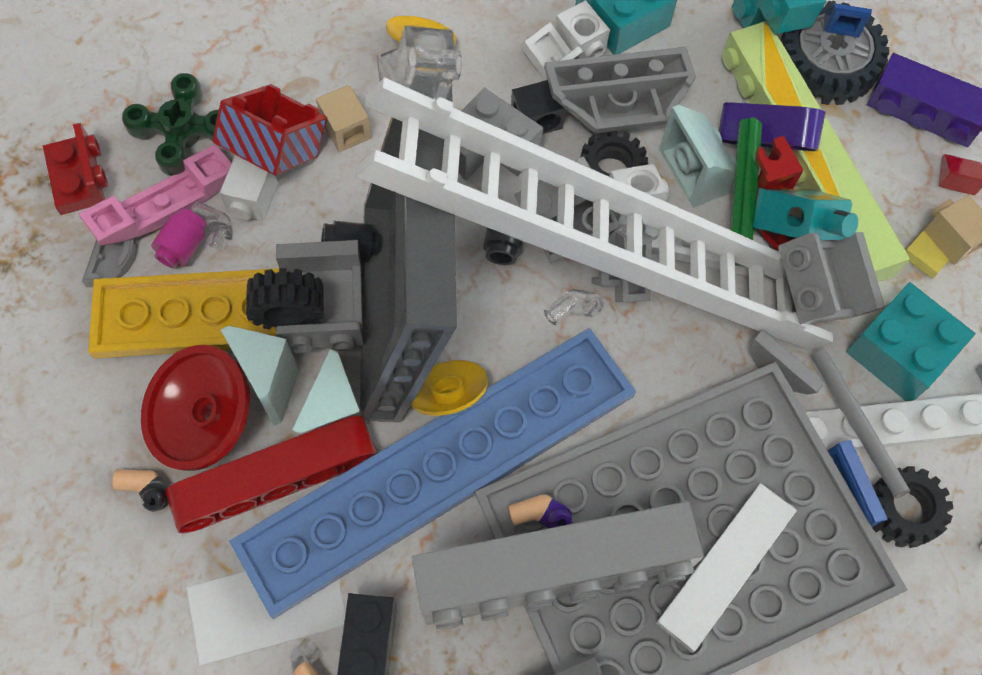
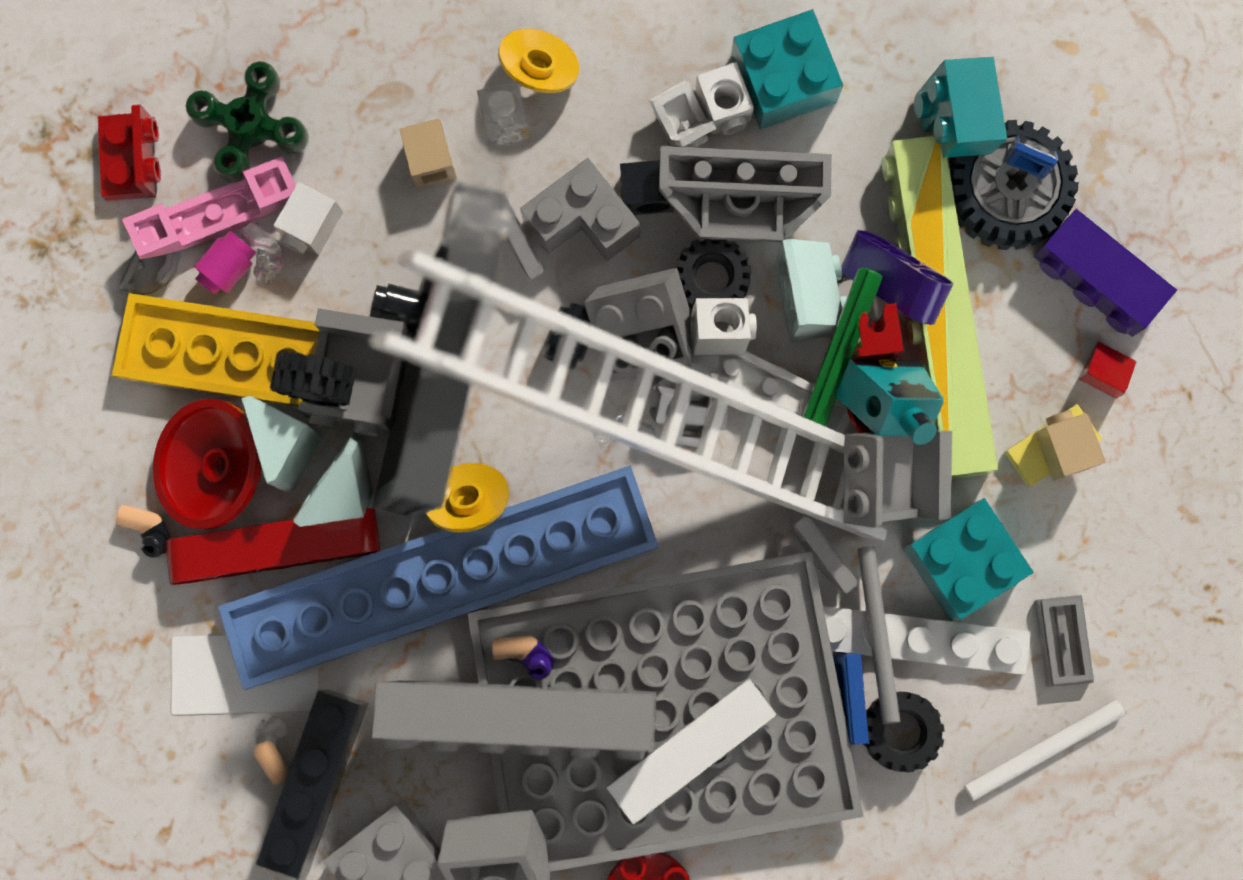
camera: 20 degrees right, 15 degrees up
(269, 129) = (340, 159): red container -> none

